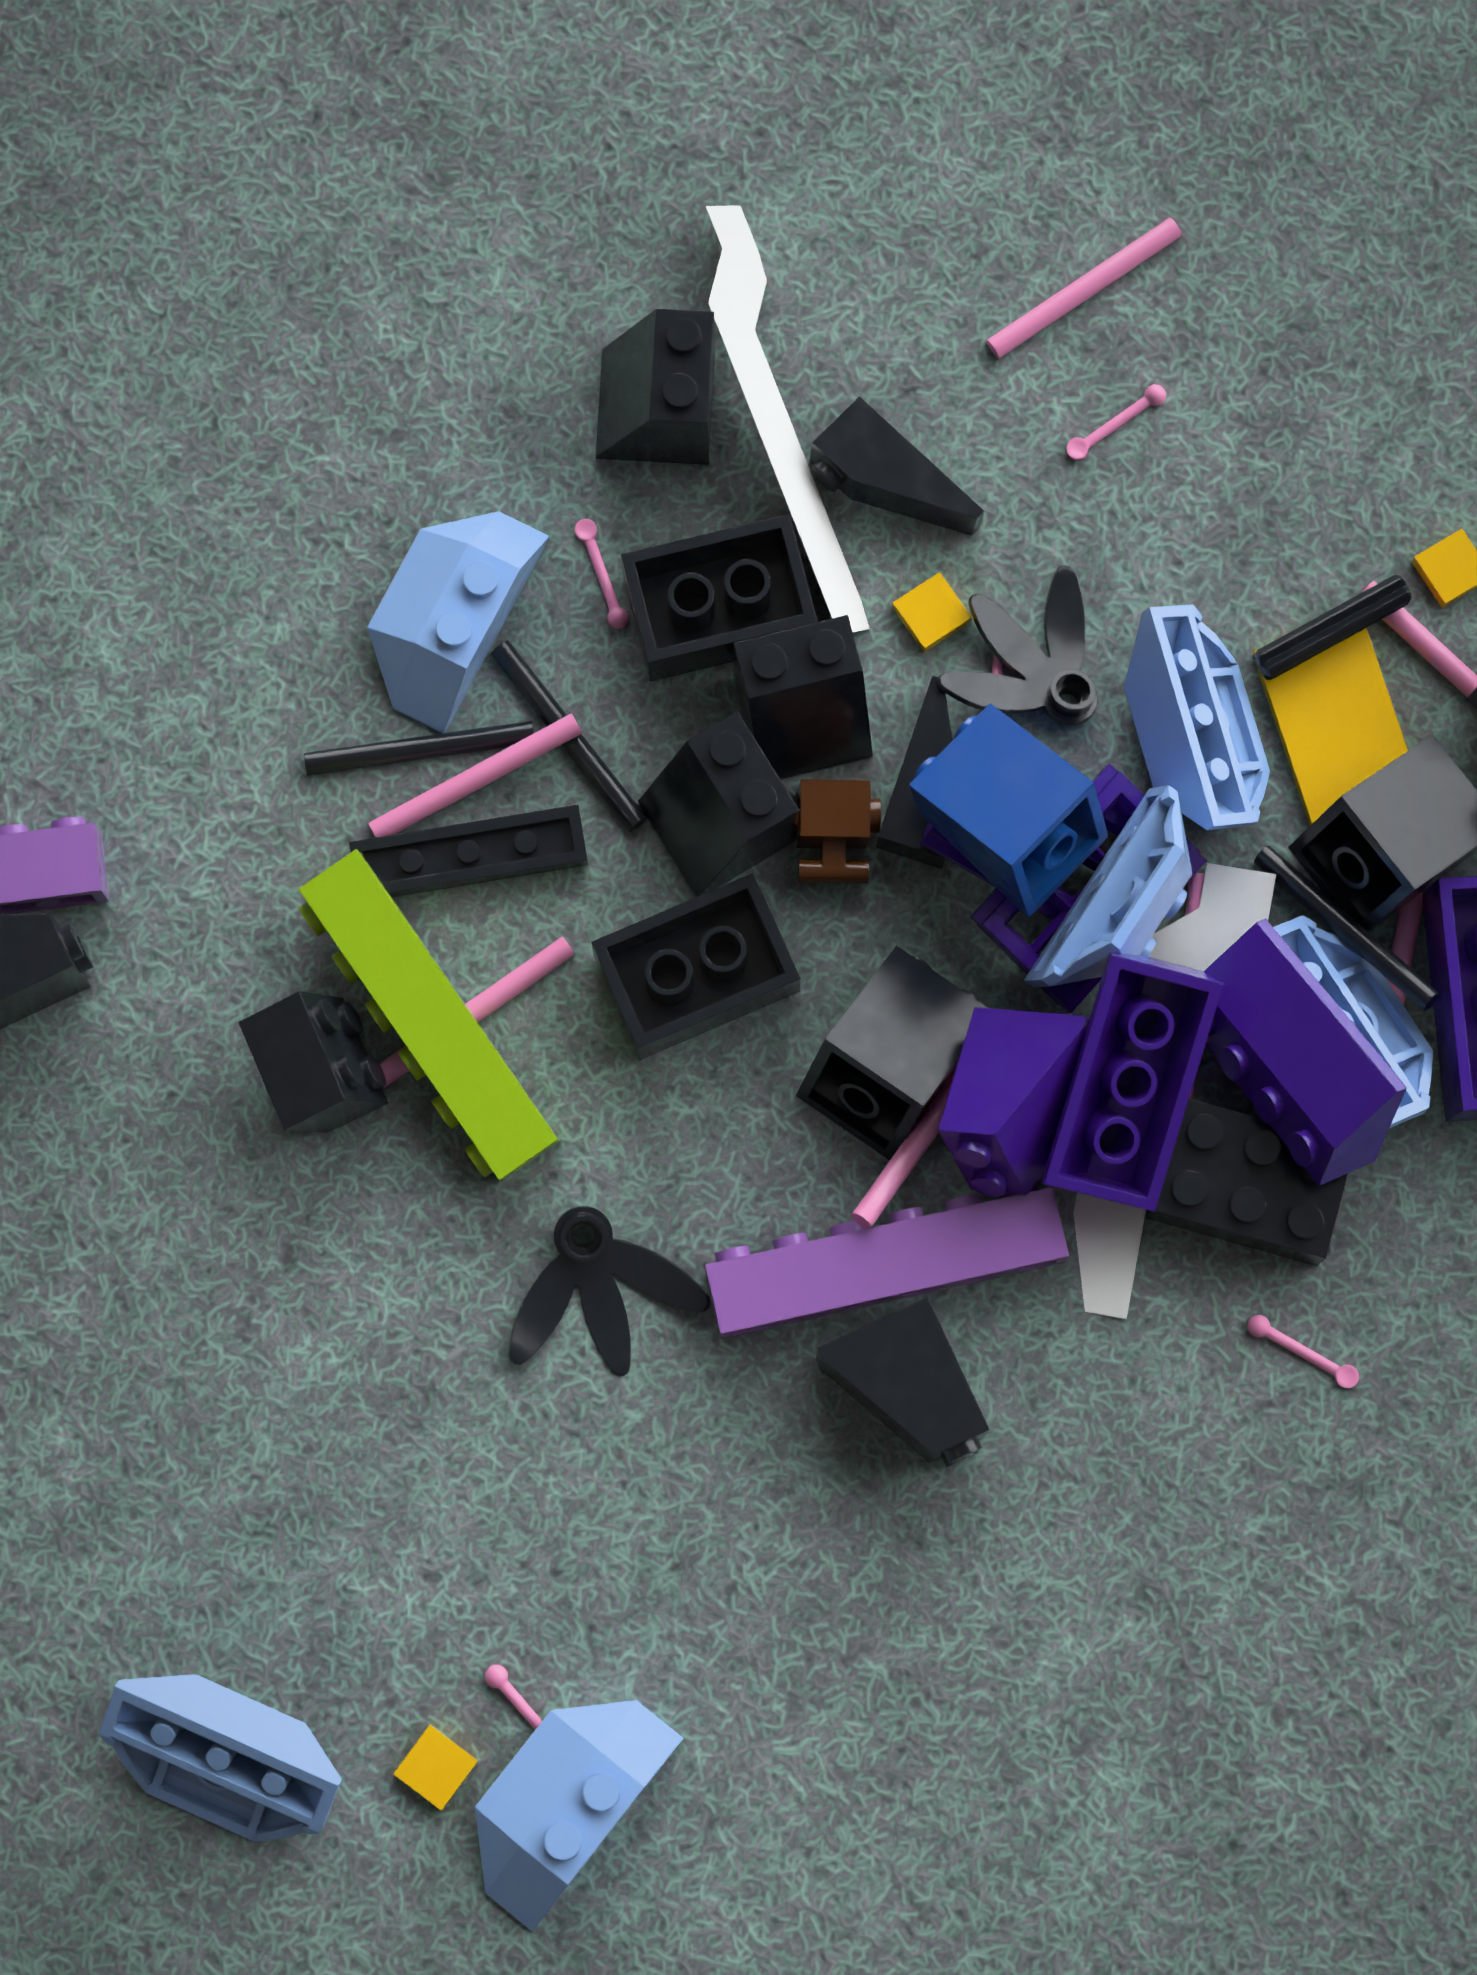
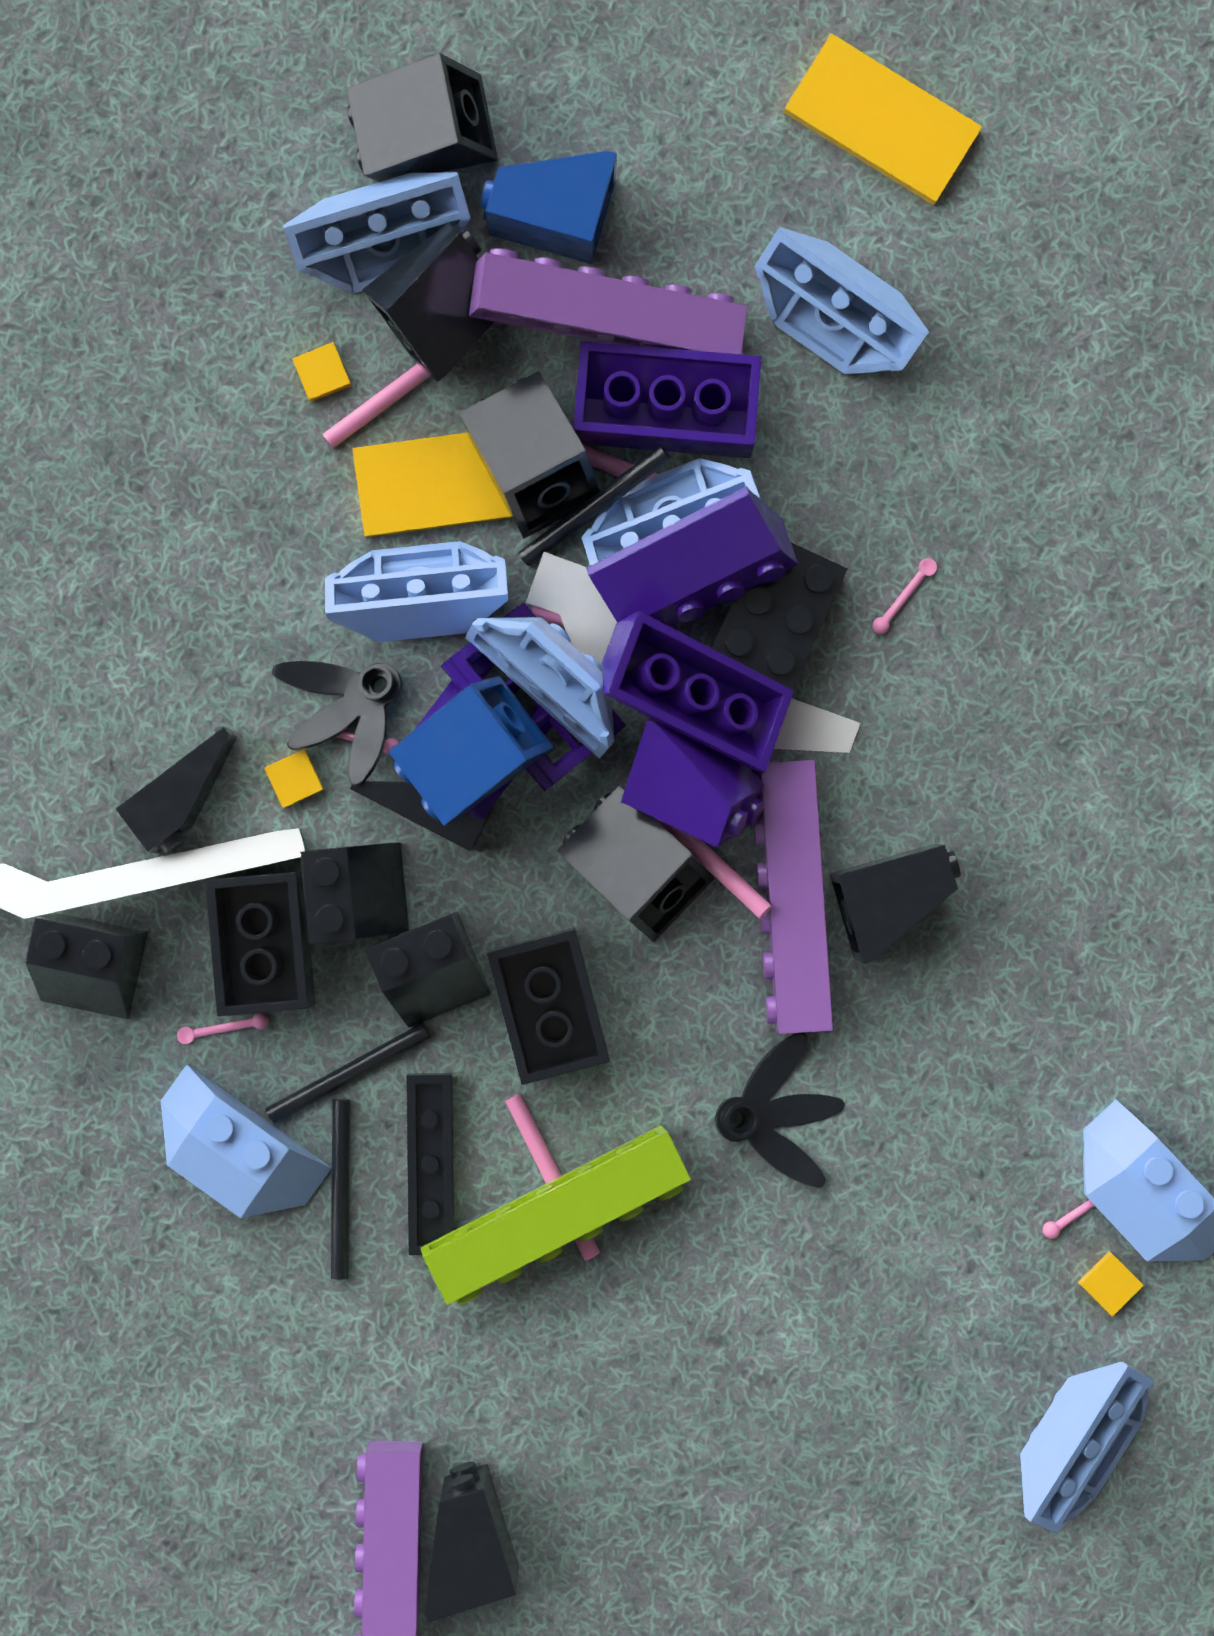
camera: 80 degrees left, 10 degrees up
(314, 1062) = (580, 1308): black brick -> none
(476, 777) = (371, 1149): bright pink bar -> none
(835, 818) = (447, 881): reddish brown brick -> none
(1078, 448) = (179, 642): bright pink hinge -> none
(1084, 288) = (50, 616): bright pink bar -> none
(1332, 627) = (357, 473): black axle -> none

